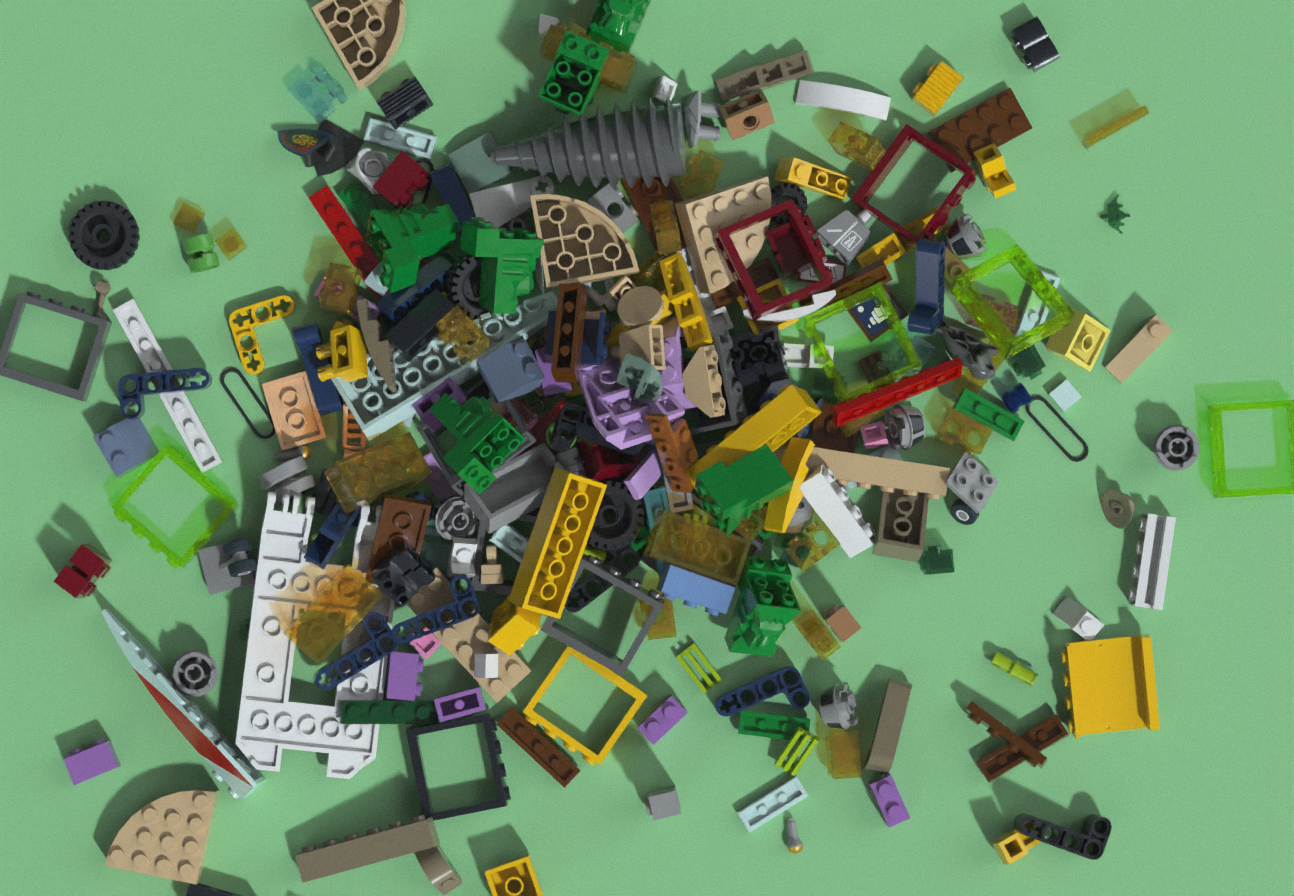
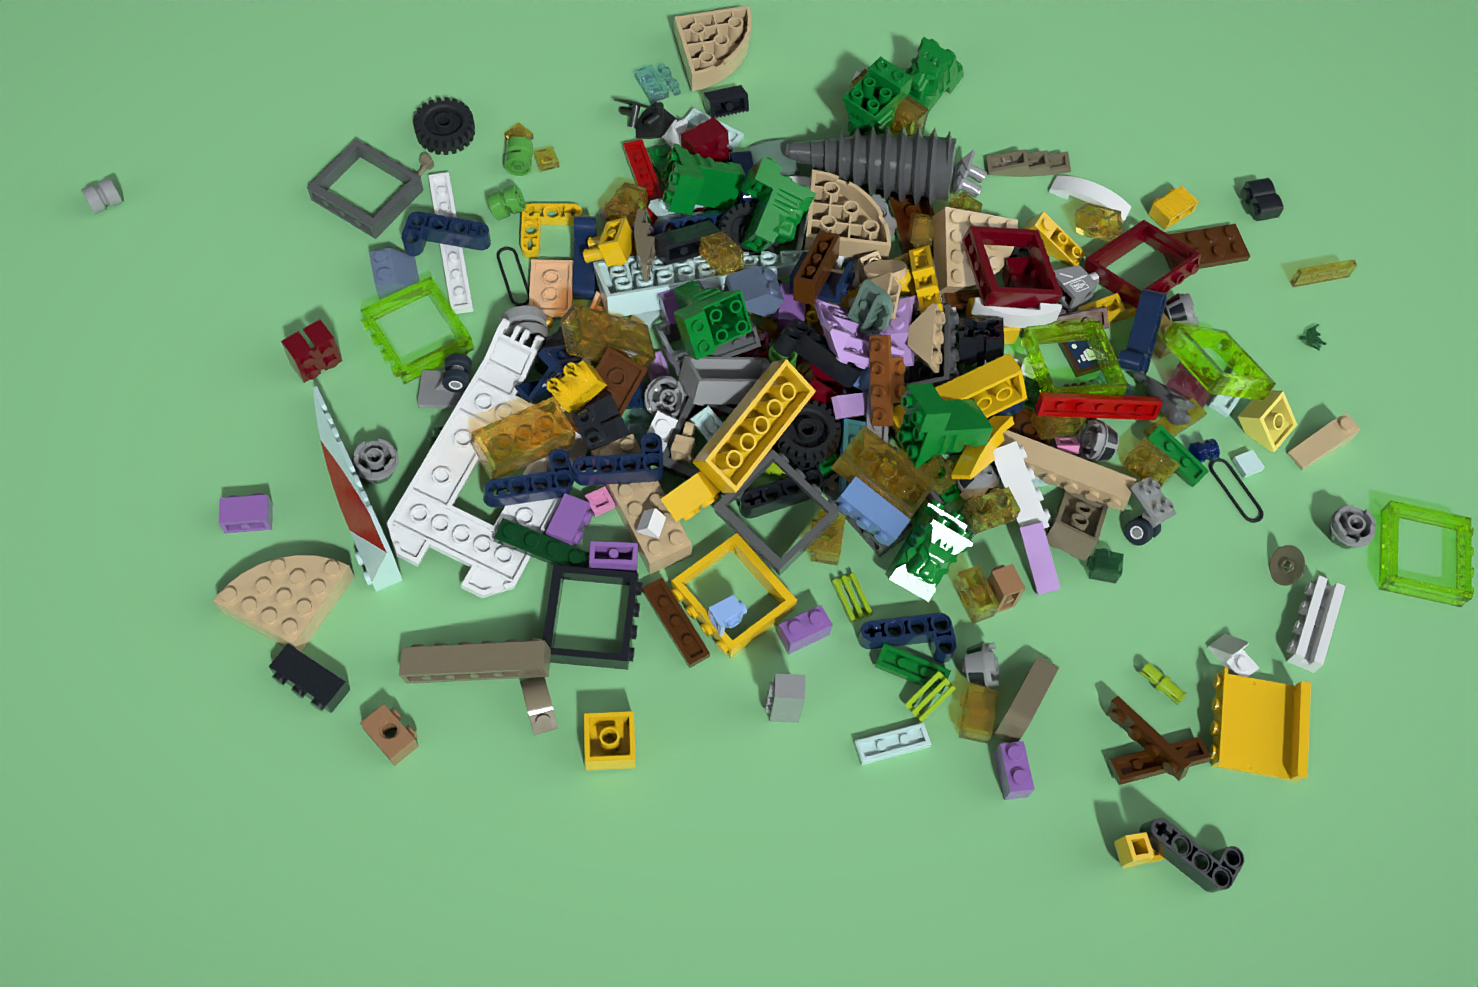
camera: 10 degrees right, 25 degrees down
(210, 322) = (507, 202): none -> bright green wheel
(367, 549) = (577, 386): none -> yellow brick
(586, 736) = (726, 614): none -> light blue brick
(746, 114) = (1020, 181): medium nougat brick -> none
(794, 843) = (906, 788): light grey piece -> none
(871, 577) = (1040, 558): none -> lavender tile
(993, 171) = (1212, 275): yellow brick -> none
(1028, 363) = (1219, 424): clear green brick -> none

